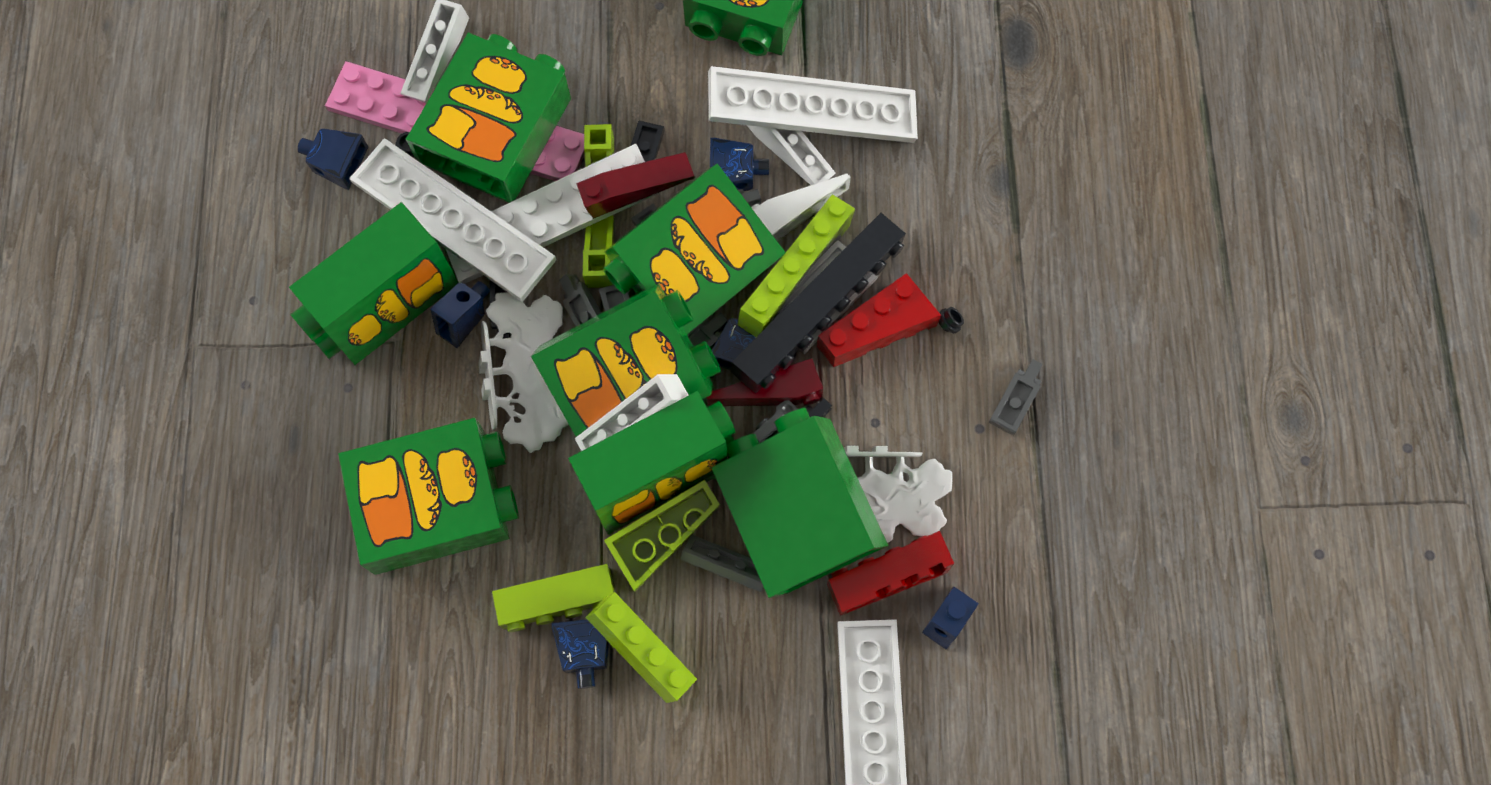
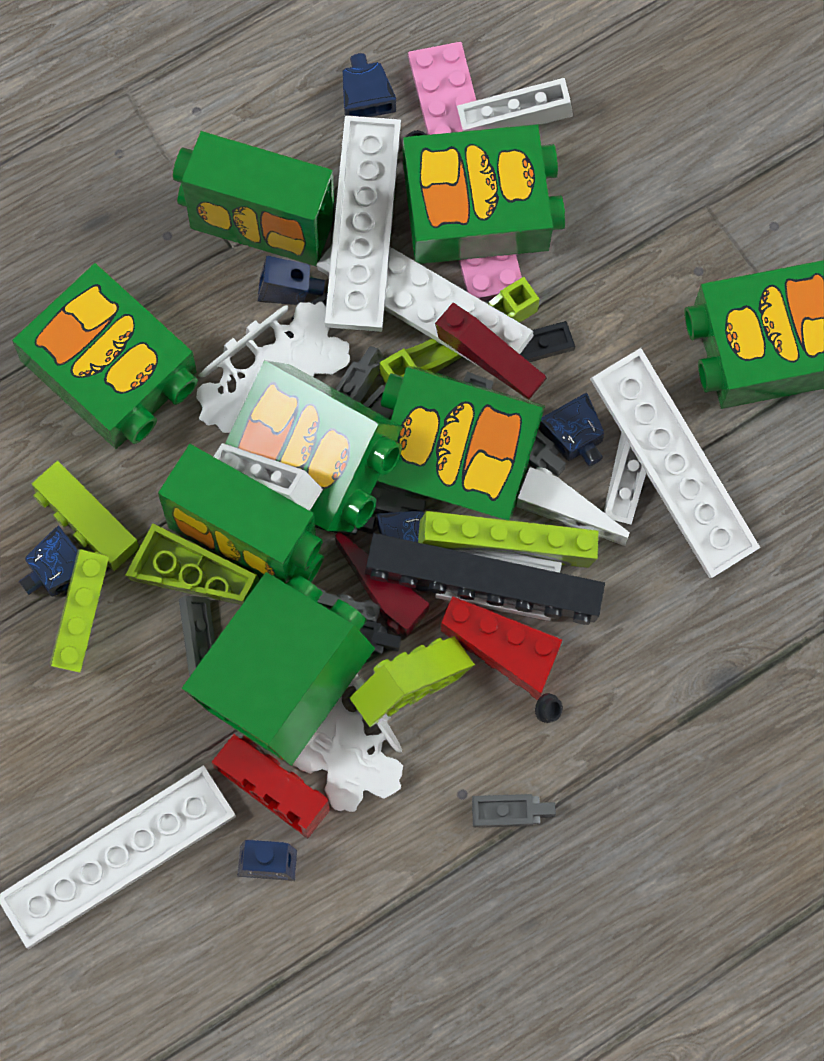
camera: 55 degrees right, 0 degrees up
(872, 407) = (411, 678): none -> lime wedge

